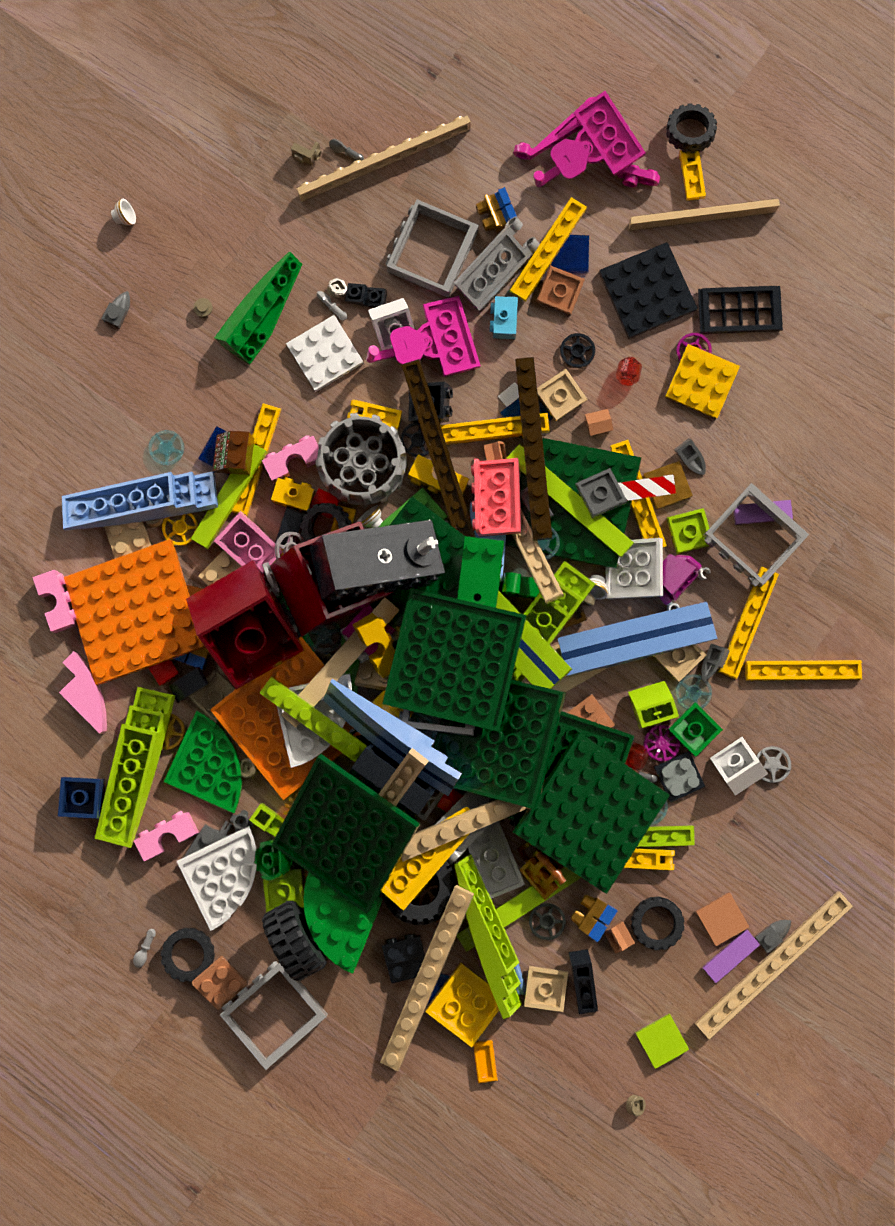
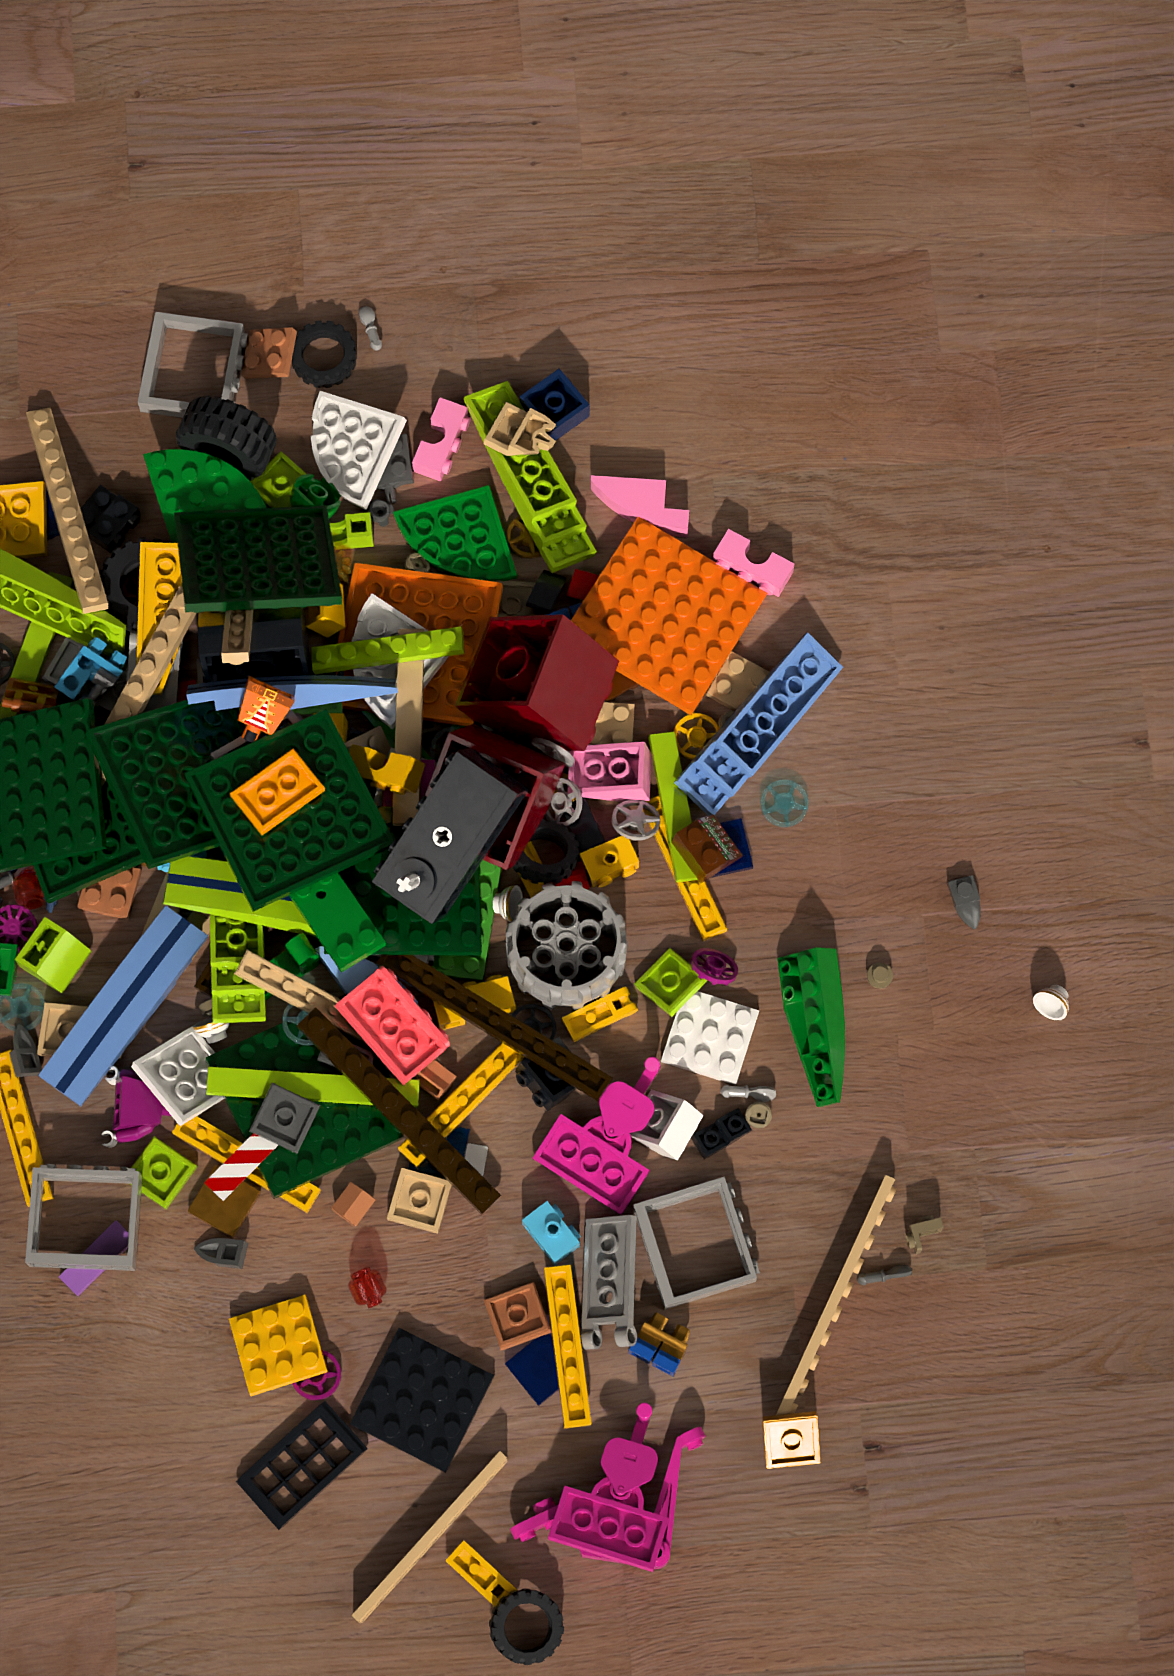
camera: 140 degrees right, 10 degrees down
(117, 792) = (520, 432): none -> tan plate
(258, 504) = (636, 819): none -> light grey wheel
(277, 463) = (653, 877): bright pink arch -> none
(288, 385) = (714, 965): none -> magenta wheel
(320, 398) = (670, 982): none -> lime tile
(420, 731) = (263, 708): none -> torso
(453, 673) = (277, 791): none -> light orange tile
(472, 105) = (791, 1439): none -> tile
(491, 860) = (91, 667): none -> dark azure hips
(577, 350) = (443, 1266): black wheel -> none

